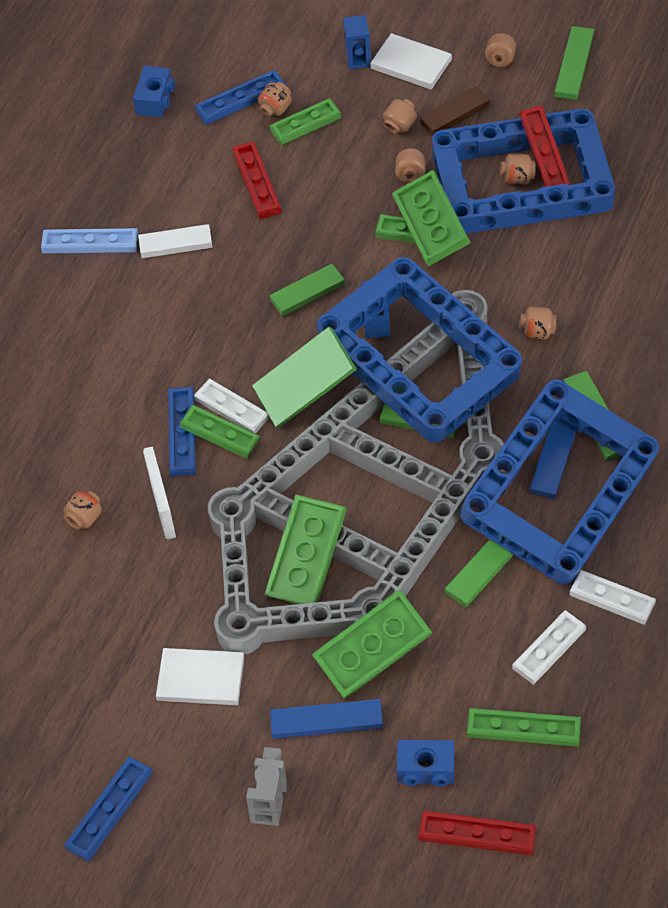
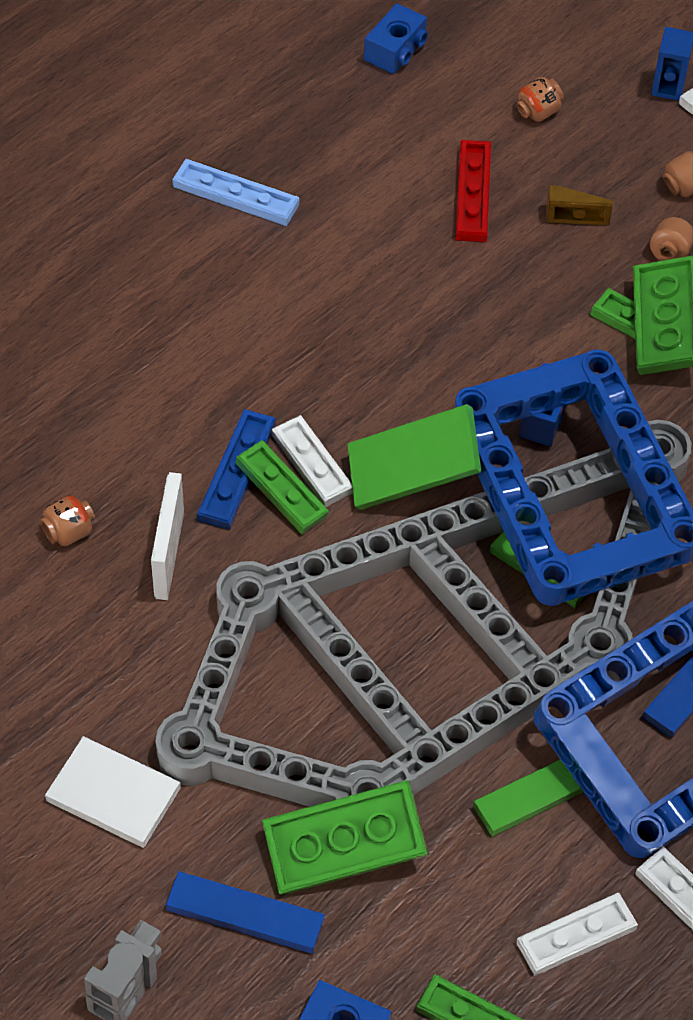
camera: 15 degrees right, 0 degrees up
(175, 241) = (338, 229): white tile -> none
(235, 98) = (492, 81): blue tile -> none
(305, 121) = (566, 140): bright green tile -> none
(305, 551) = (315, 682): bright green tile -> none
(307, 290) = (473, 349): bright green tile -> none
(334, 166) = (577, 207): none -> pearl gold slope

